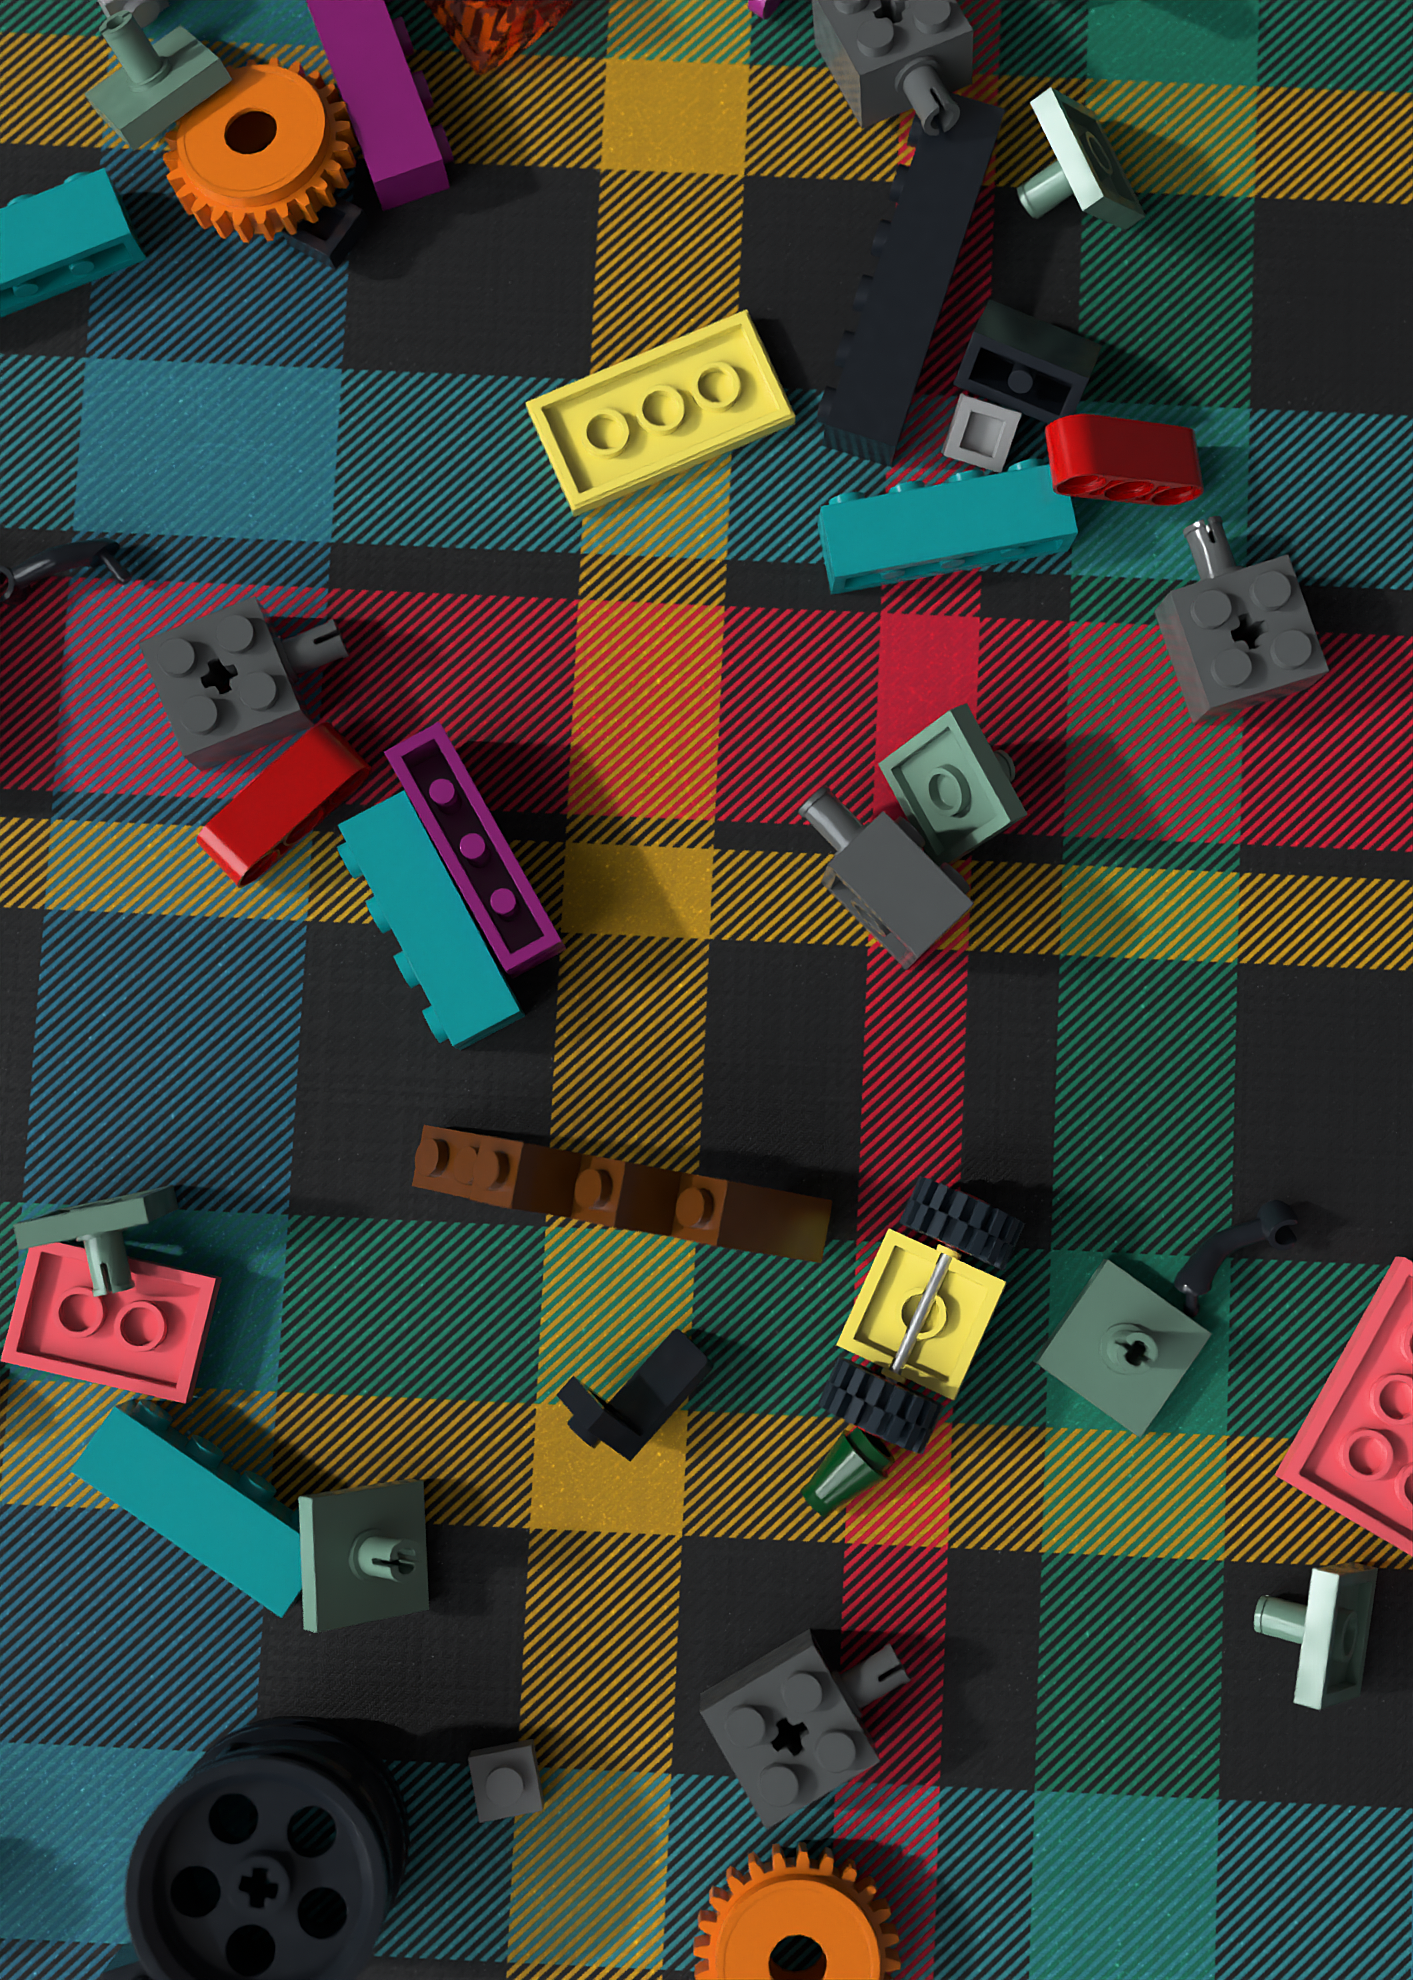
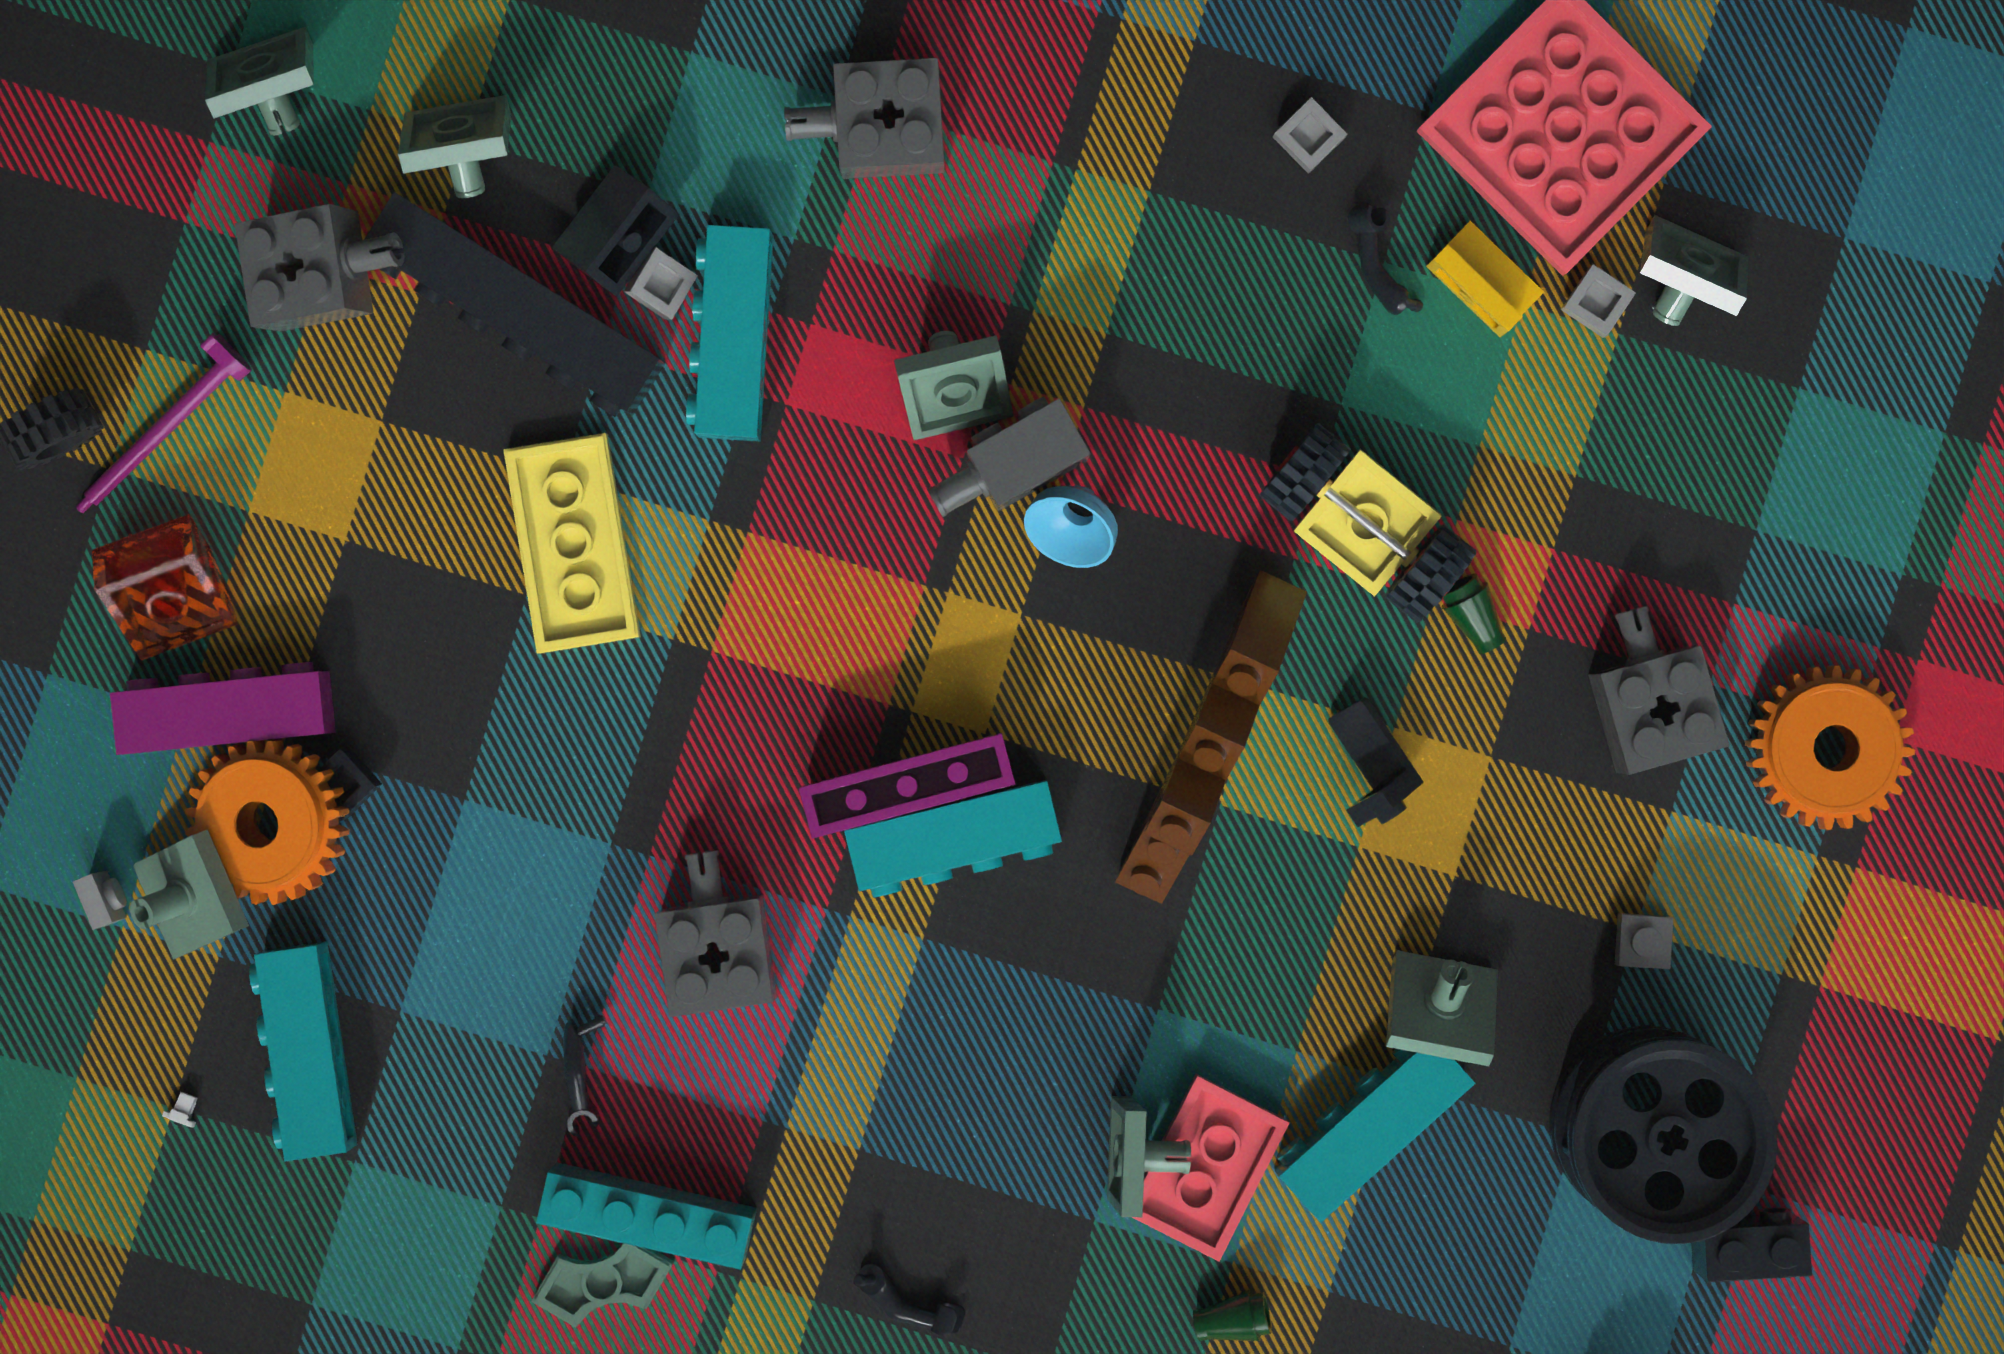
camera: 75 degrees left, 5 degrees up
(283, 804) = (826, 932): red beam -> none
(815, 963) = (1068, 536): none -> medium azure piece
(1122, 1347) = (1433, 369): sand green tile -> none
(1123, 460) = (718, 174): red beam -> none
(1245, 1382) = (1485, 279): none -> yellow panel
(1257, 1526) = (1598, 301): none -> light grey plate
(1357, 1130) = (1310, 135): none -> light grey plate

